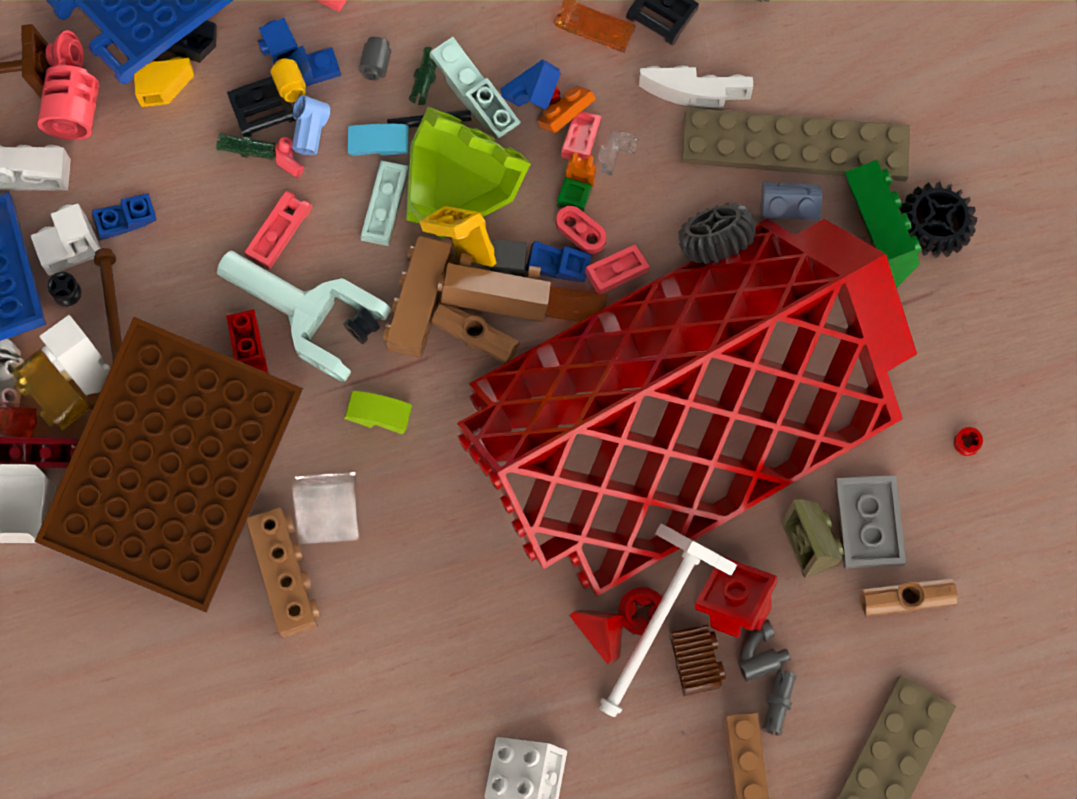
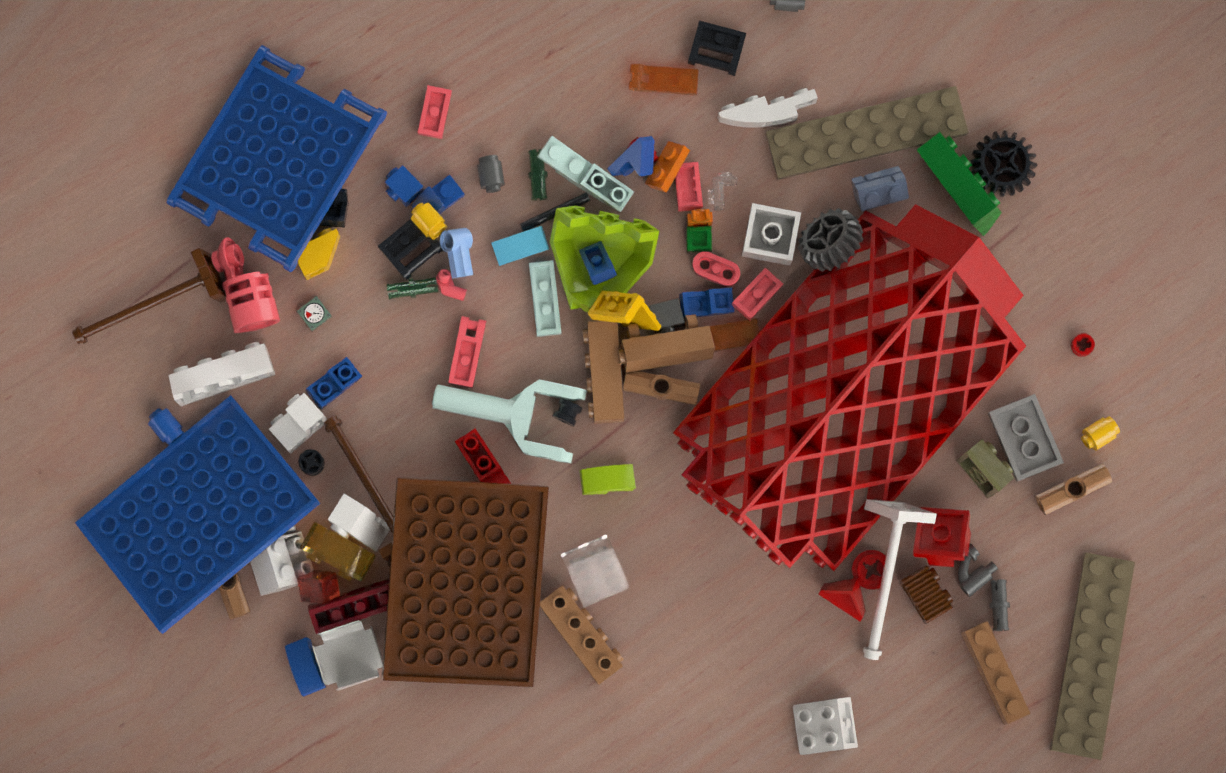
camera: 25 degrees left, 10 degrees up
(133, 140) = (314, 313): none -> tile
(453, 184) = (597, 263): none -> blue slope
(653, 210) = (771, 234): none -> white brick
(959, 544) = (1100, 433): none -> yellow brick

